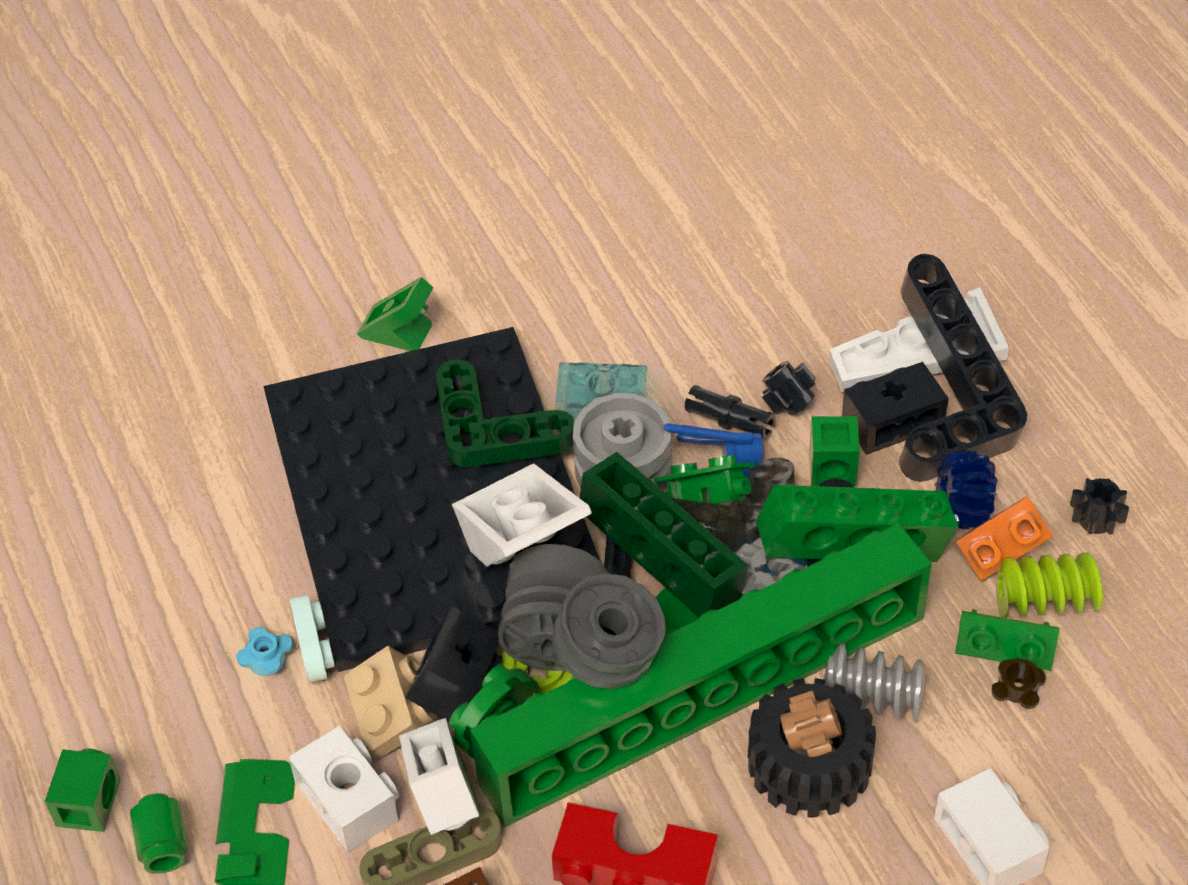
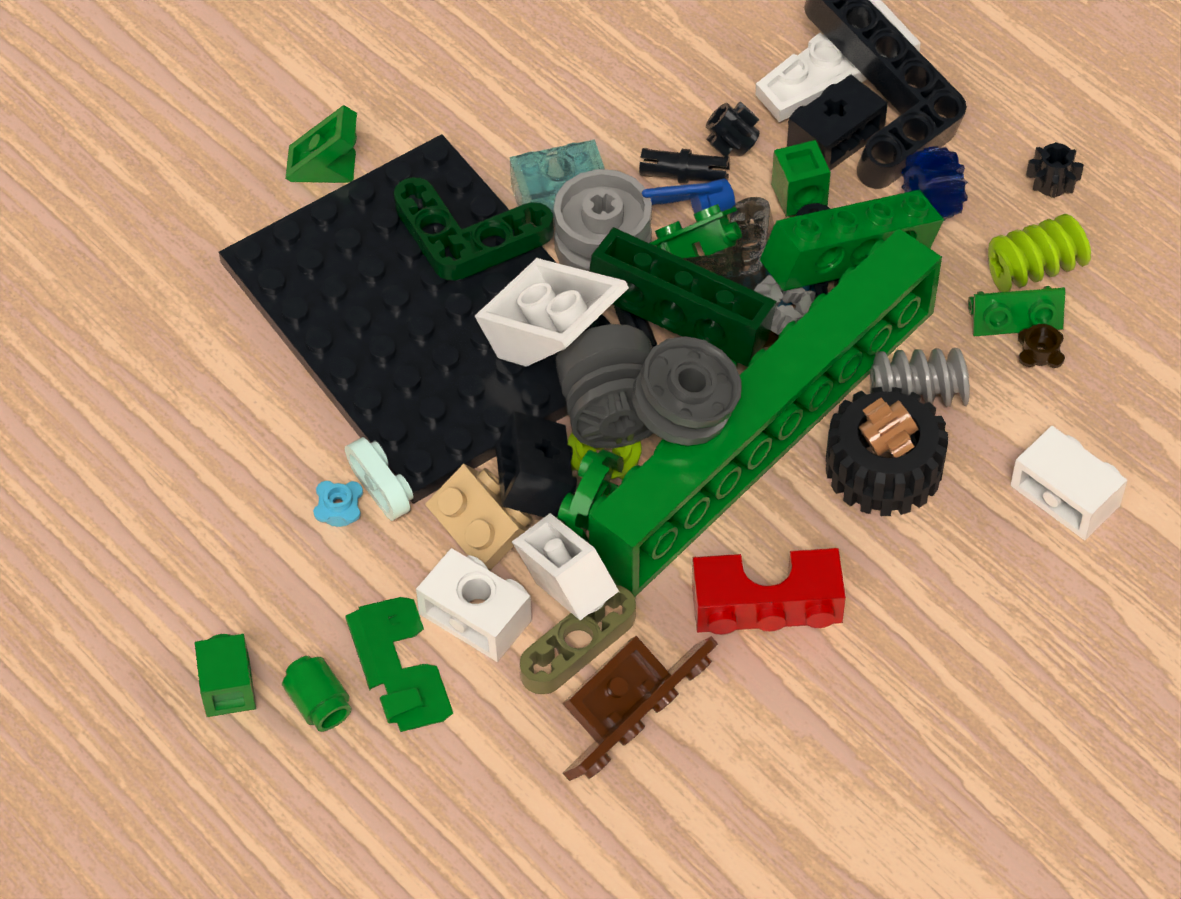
camera: 20 degrees left, 5 degrees up
(1004, 536) = (983, 218): orange hips -> none

